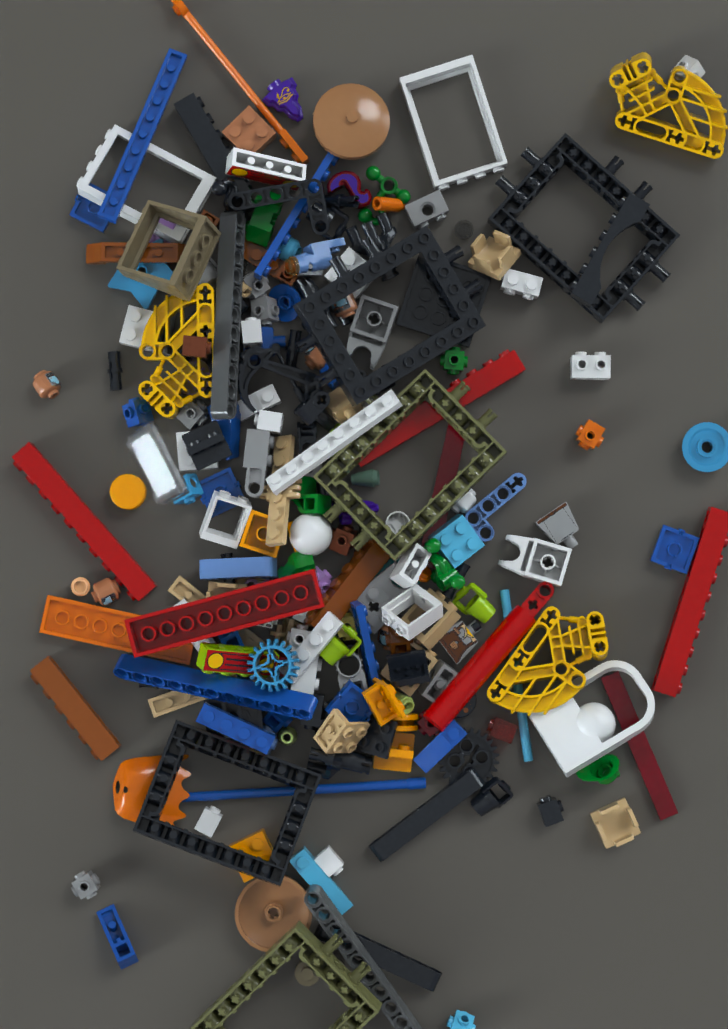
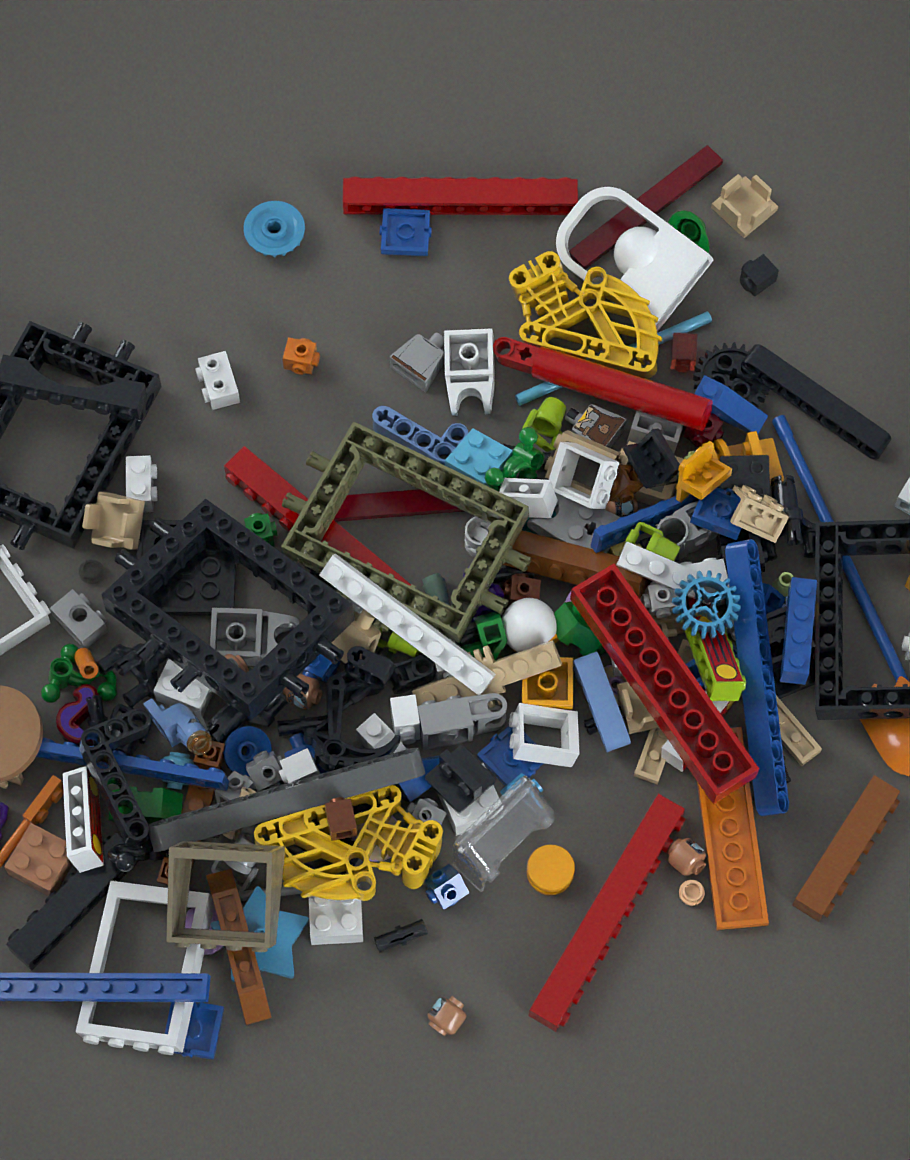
camera: 110 degrees left, 20 degrees down
(487, 800) = (772, 340): black piece -> none

